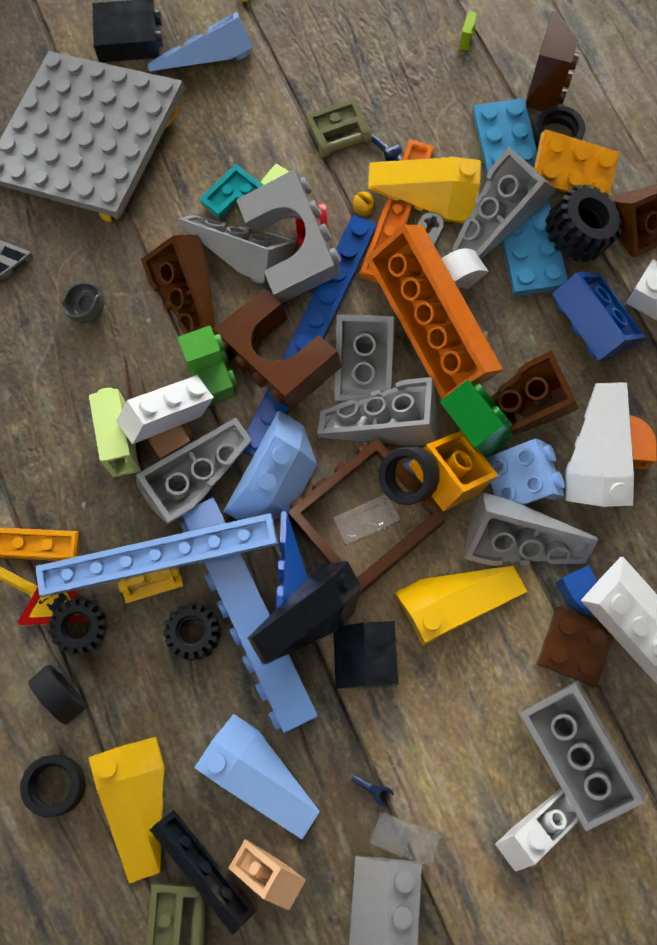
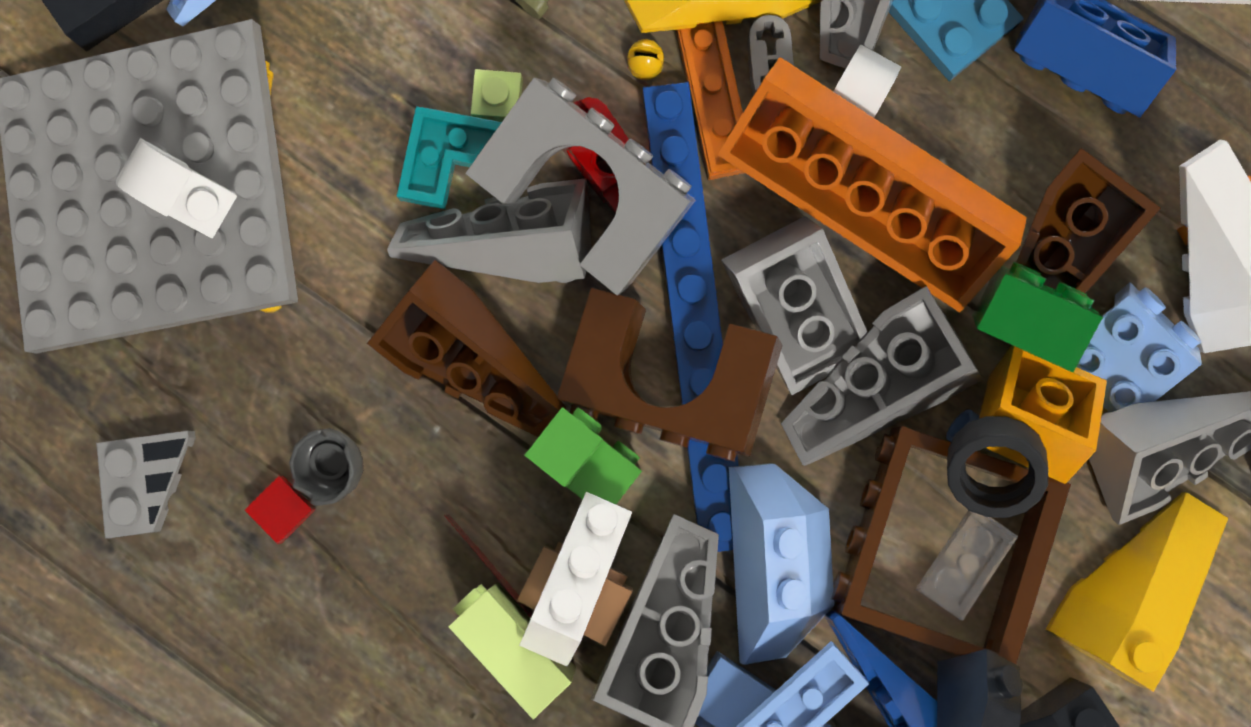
camera: 30 degrees left, 10 degrees up
(48, 313) = (280, 509): none -> red tile
(96, 132) = (174, 189): none -> white brick

